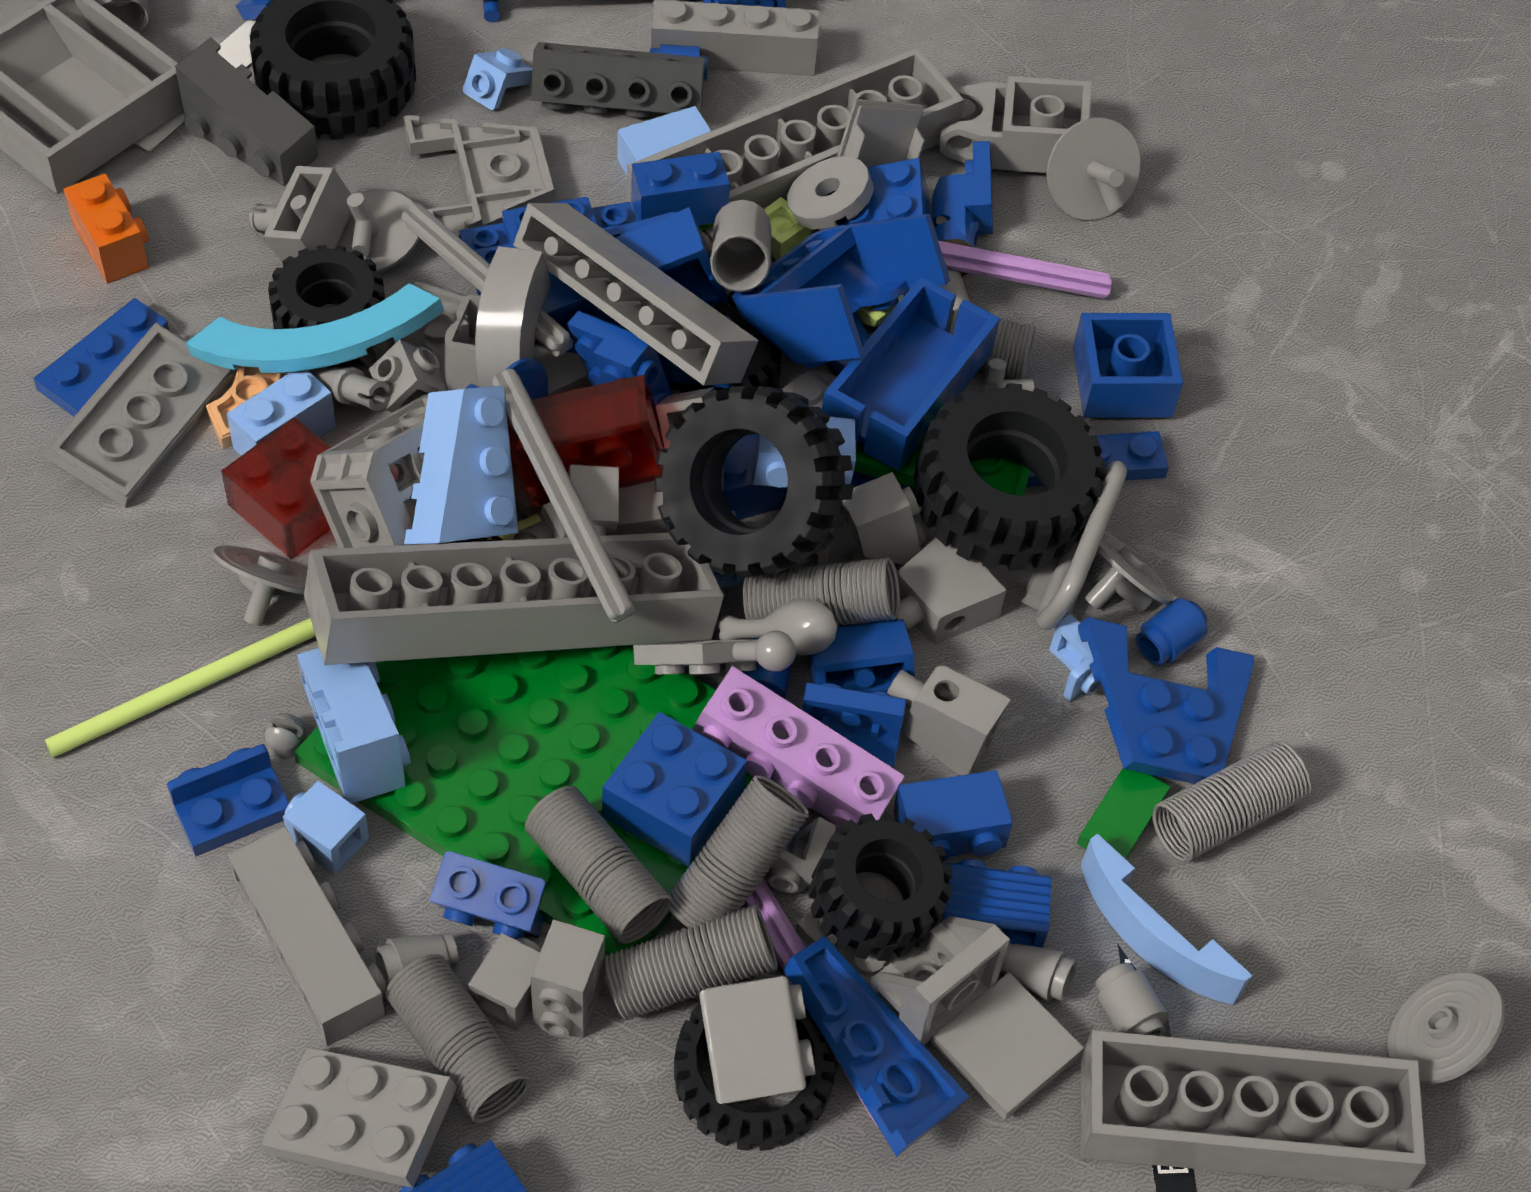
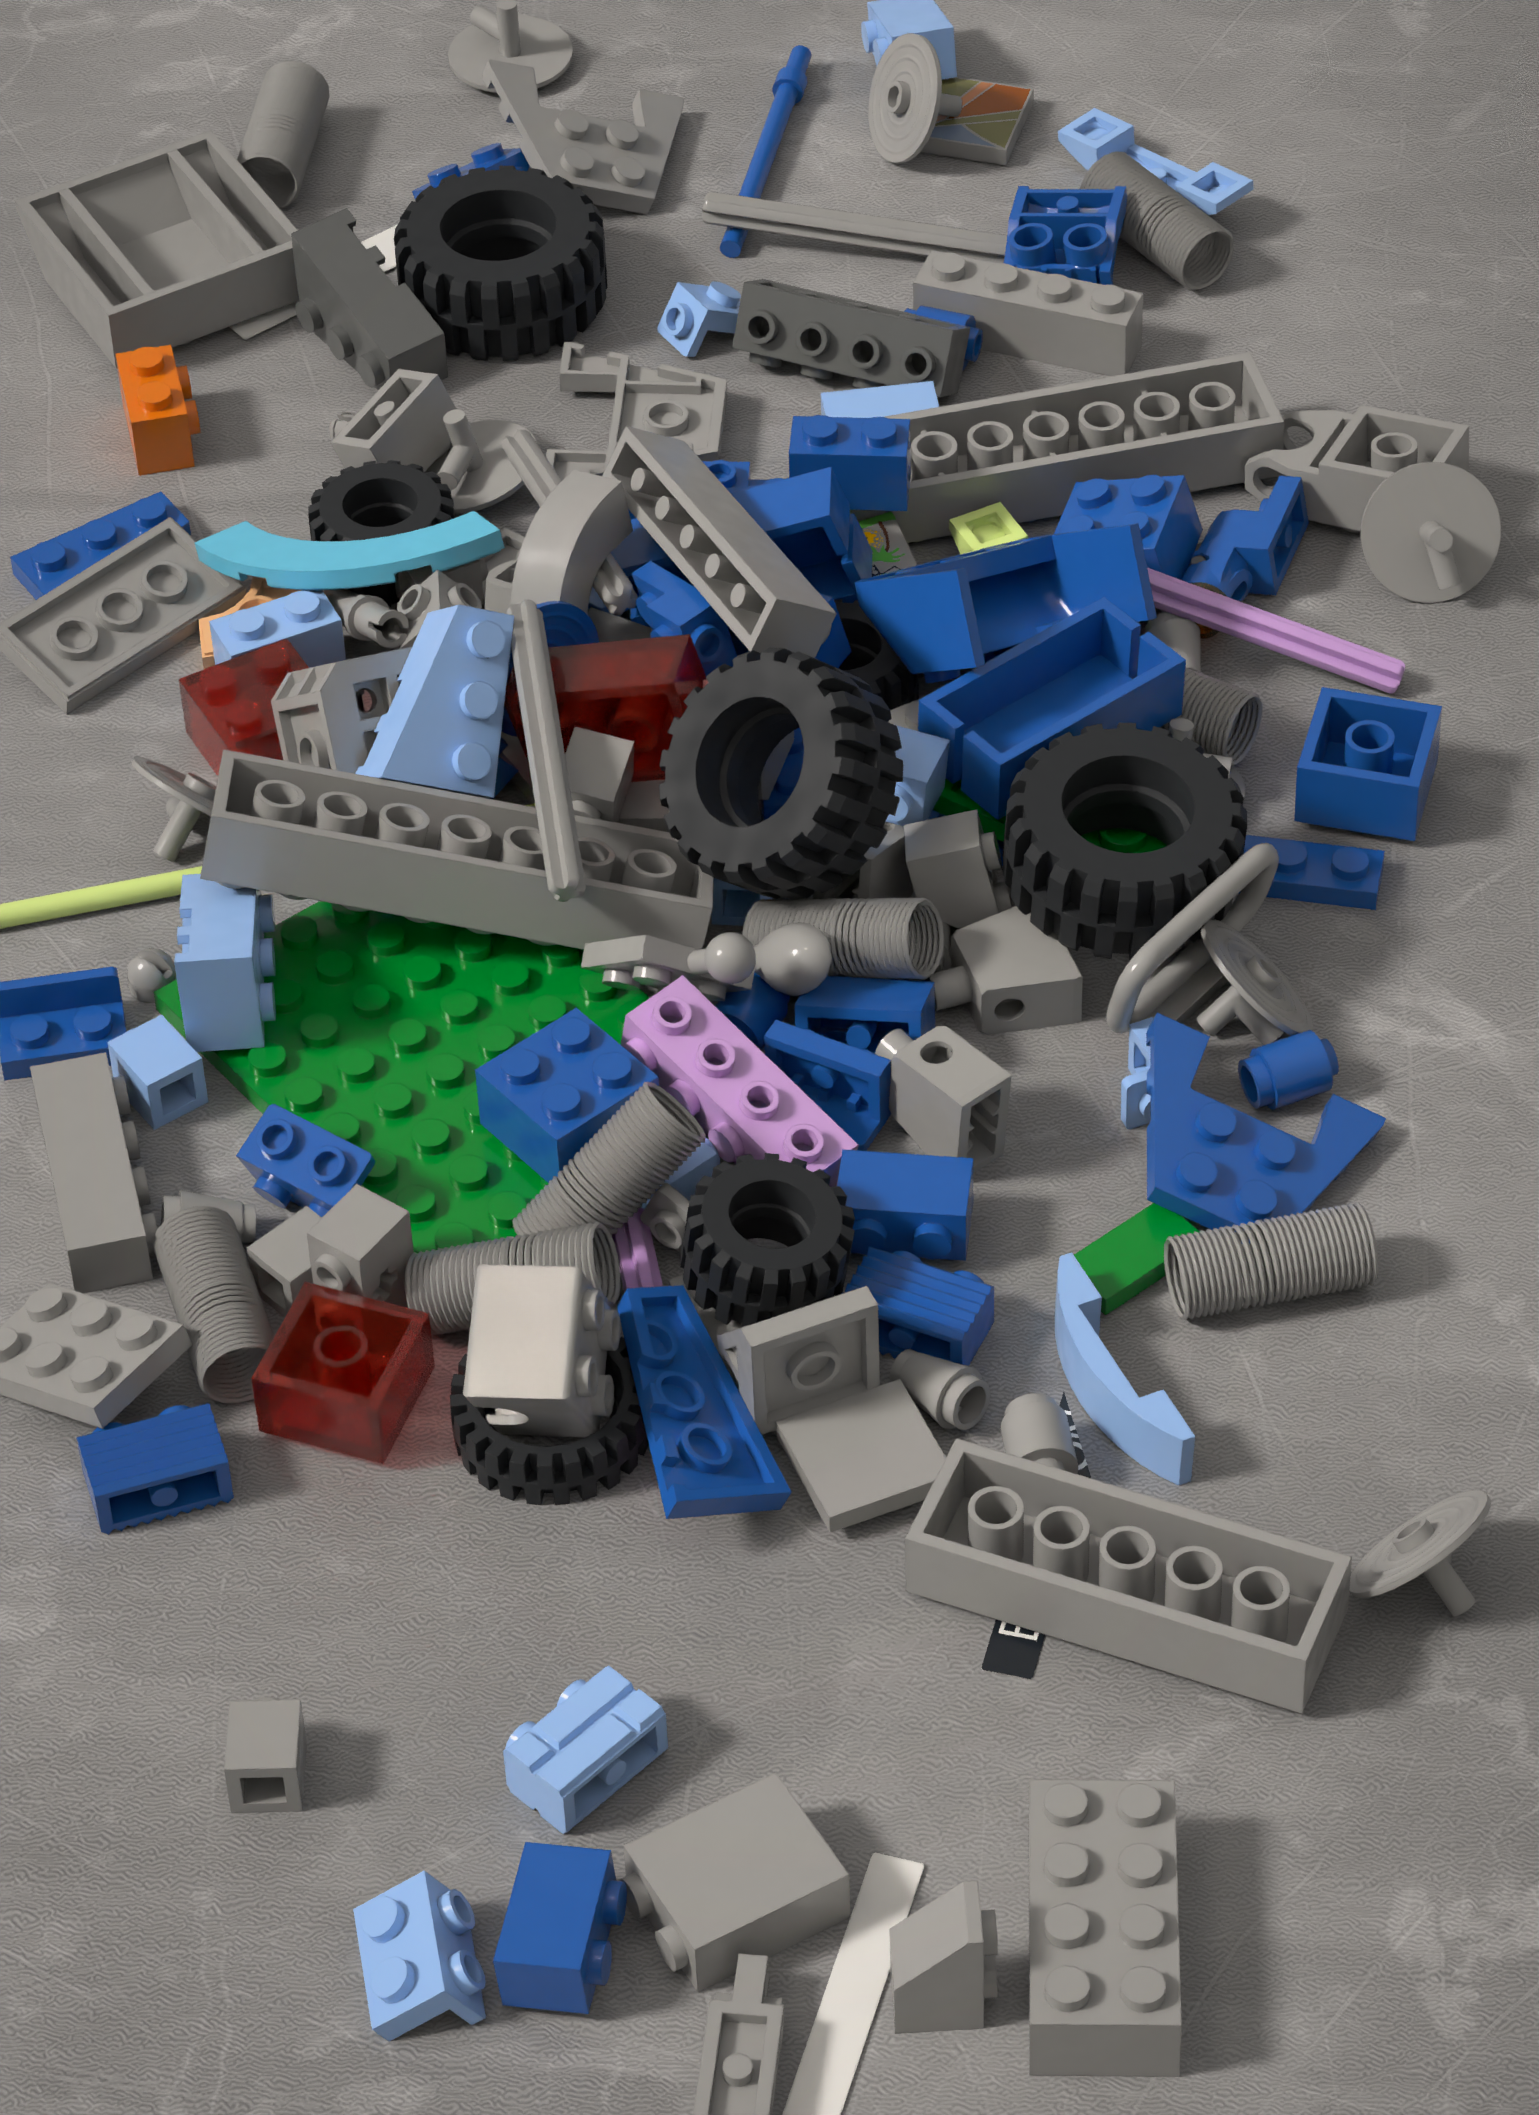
camera: 25 degrees right, 10 degrees down
(585, 1080) = (343, 1372): none -> clear red brick
(588, 855) = (443, 1154): light grey piece -> none
(738, 269) = (864, 532): light grey piece -> none
(840, 174) = (1053, 497): light grey tile -> none
(882, 132) = (1149, 438): light grey piece -> none

